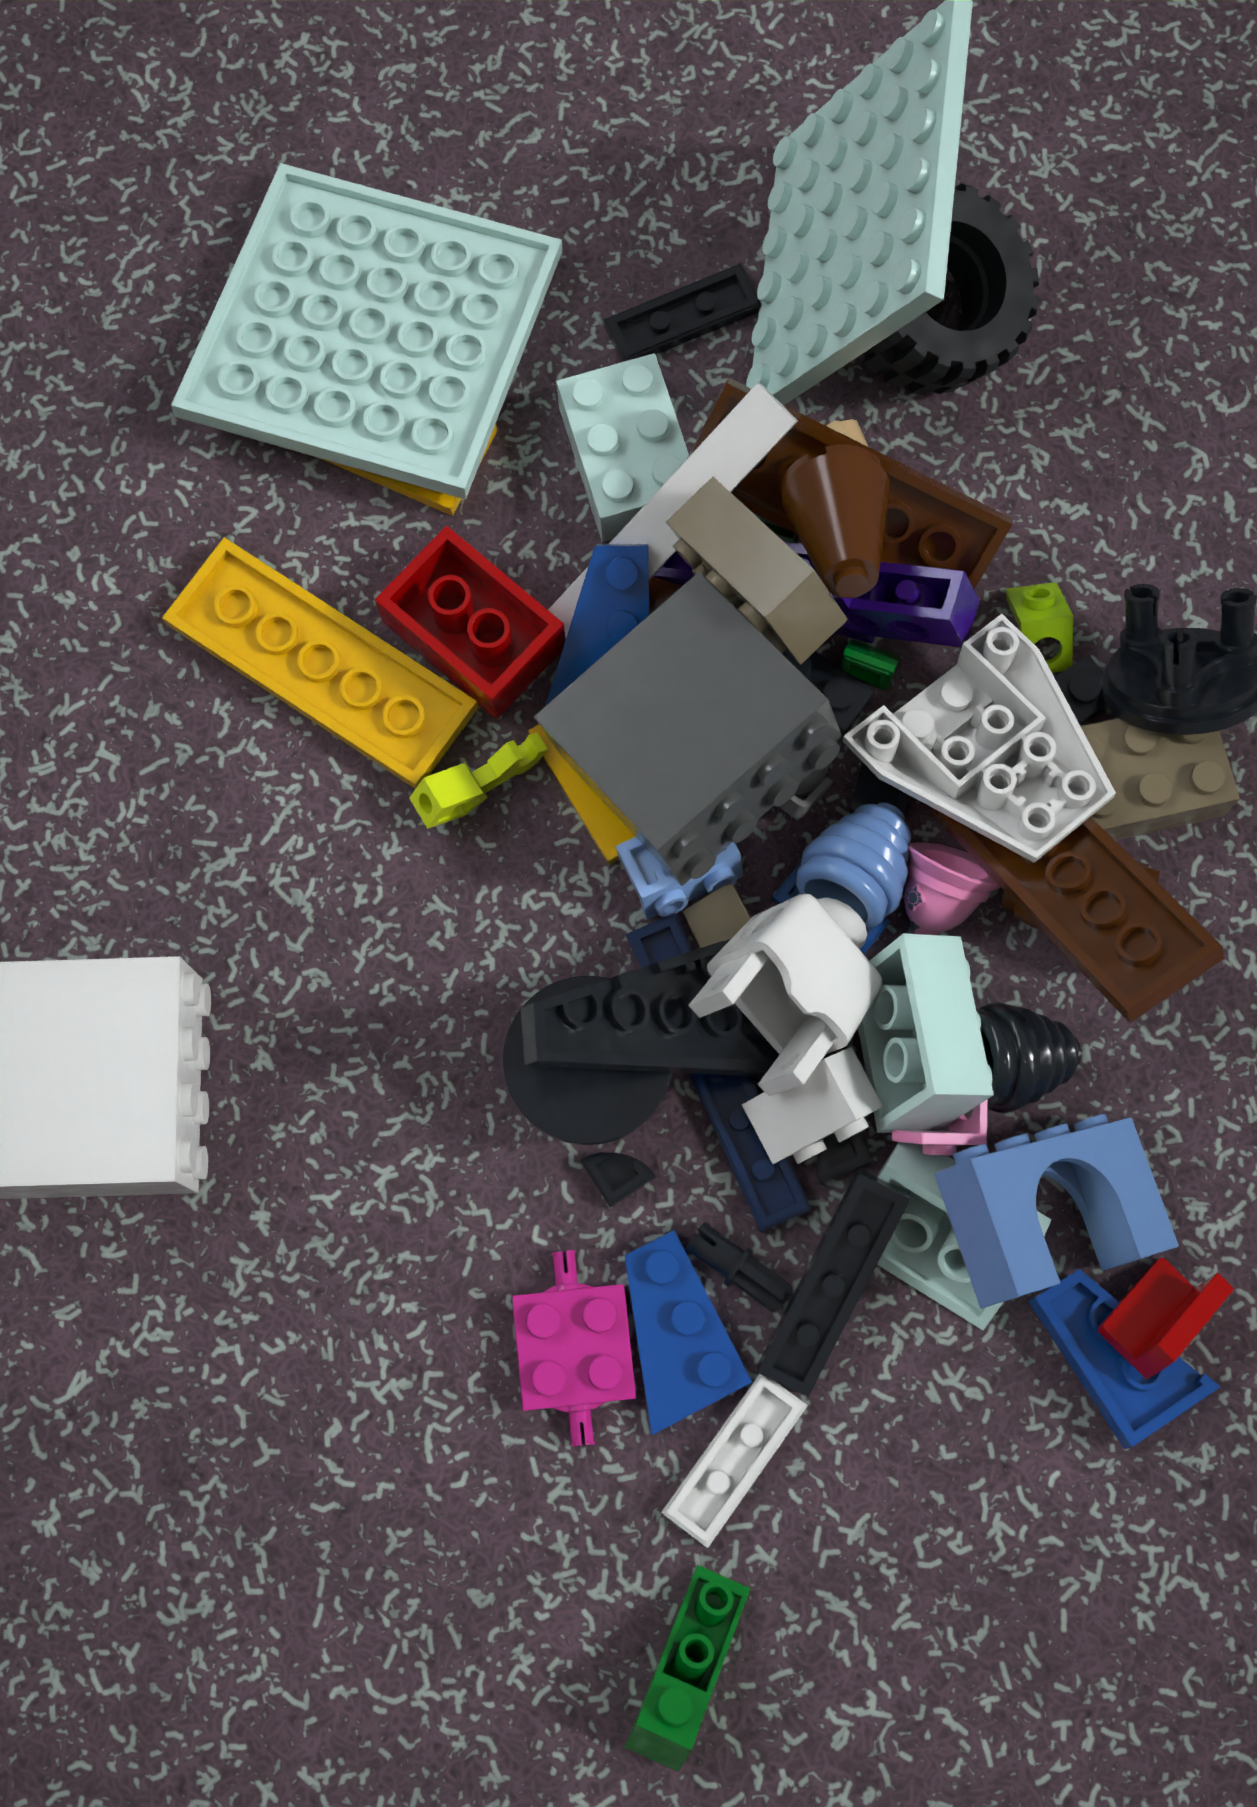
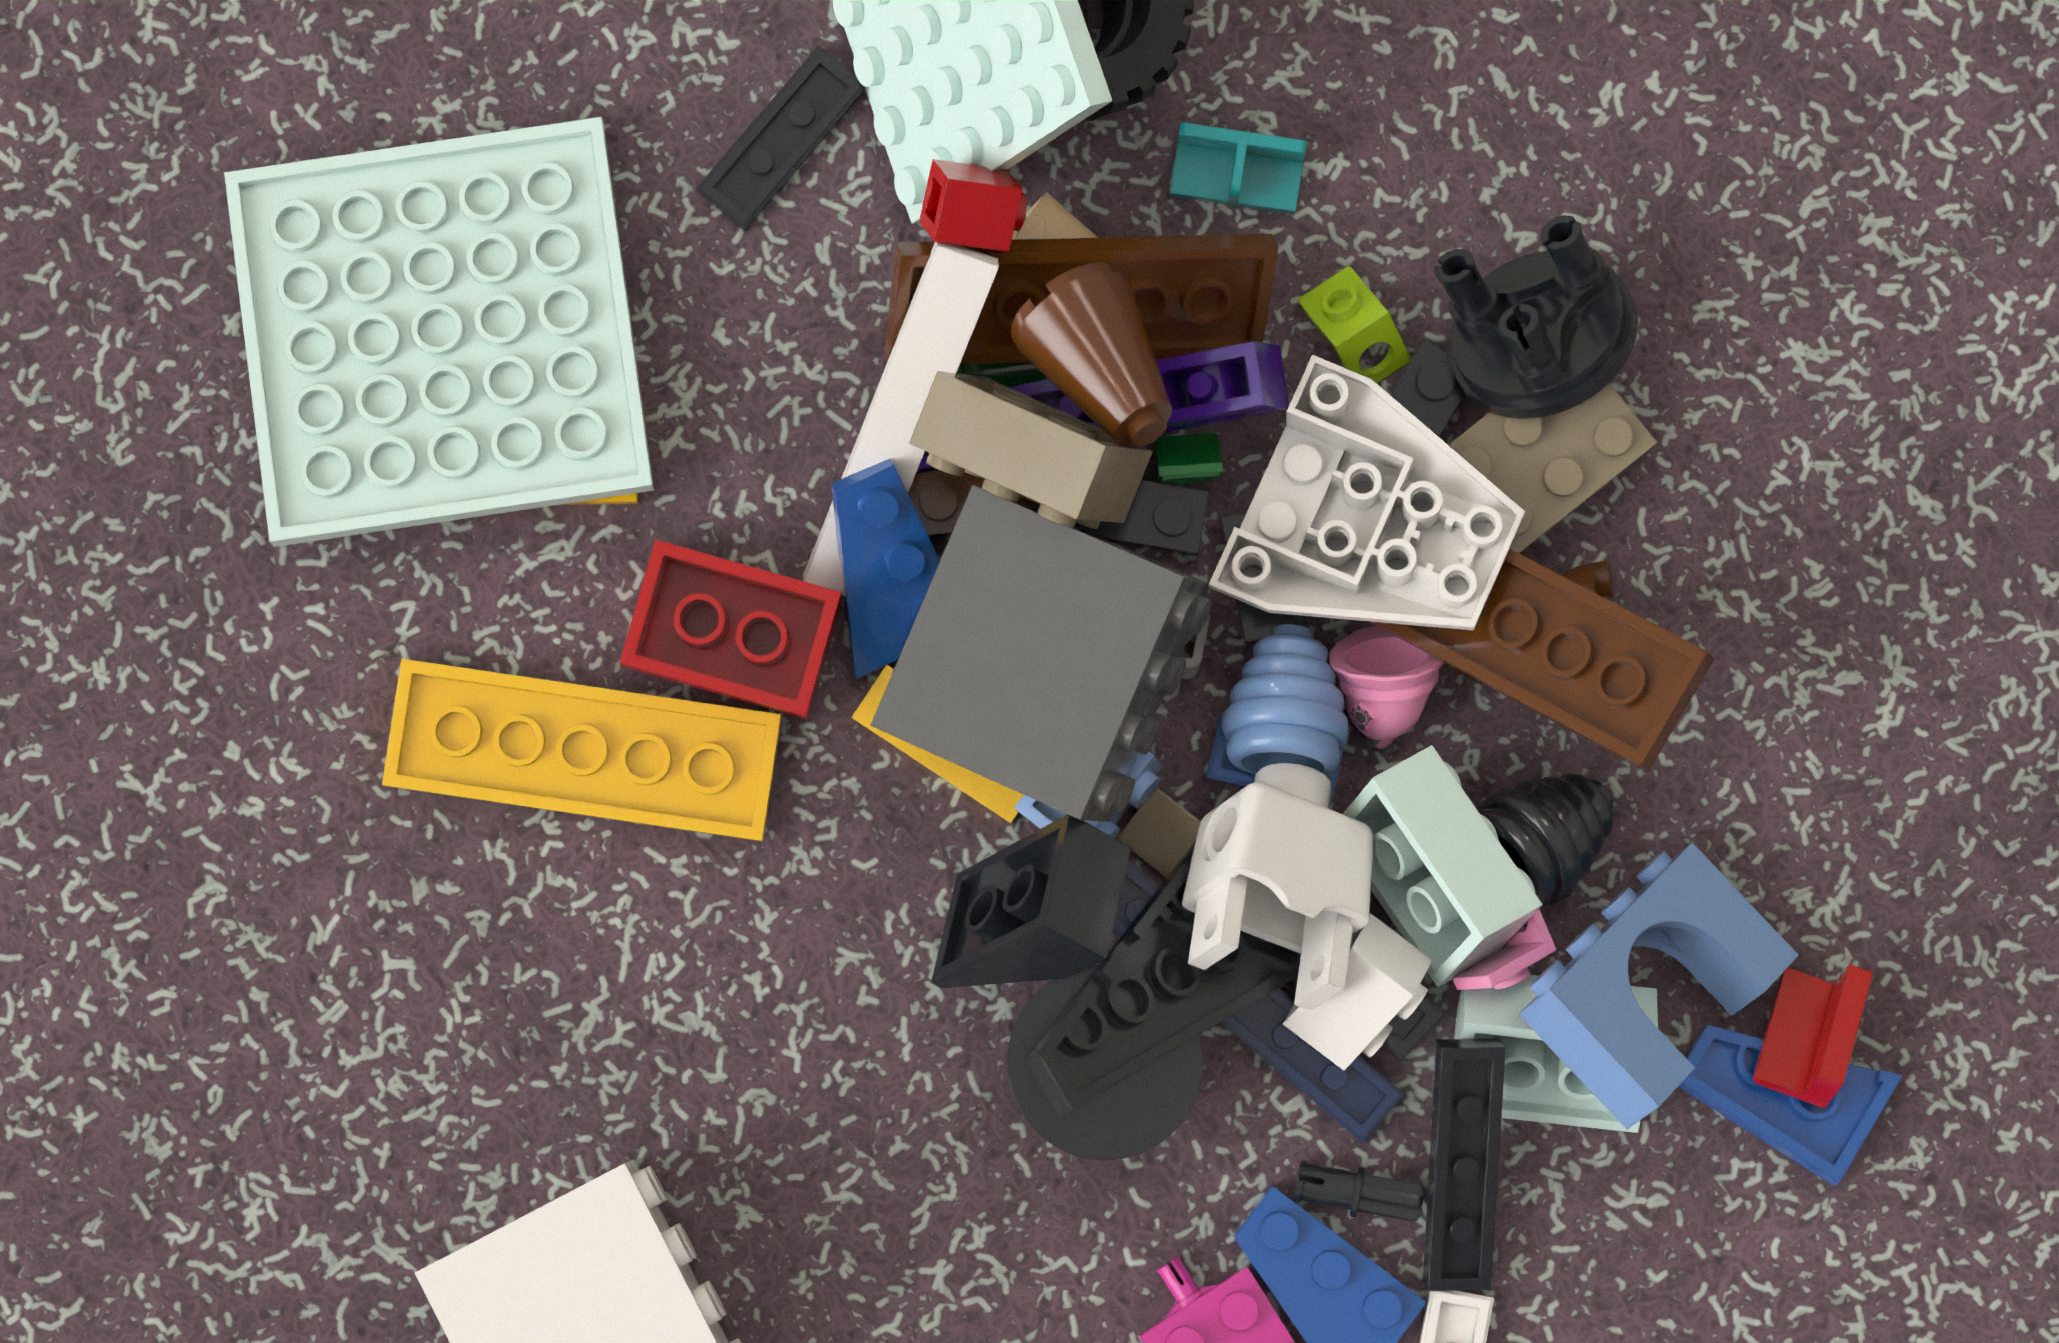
camera: 30 degrees left, 10 degrees up
(459, 790) = (816, 816): neon yellow piece -> none
(595, 918) = (1034, 908): none -> black slope
(617, 1175) = (1185, 1156): black tile -> none
(621, 437) = (797, 335): light aqua brick -> none
(799, 375) = (972, 205): none -> red brick
(1007, 472) = (1237, 168): none -> teal panel

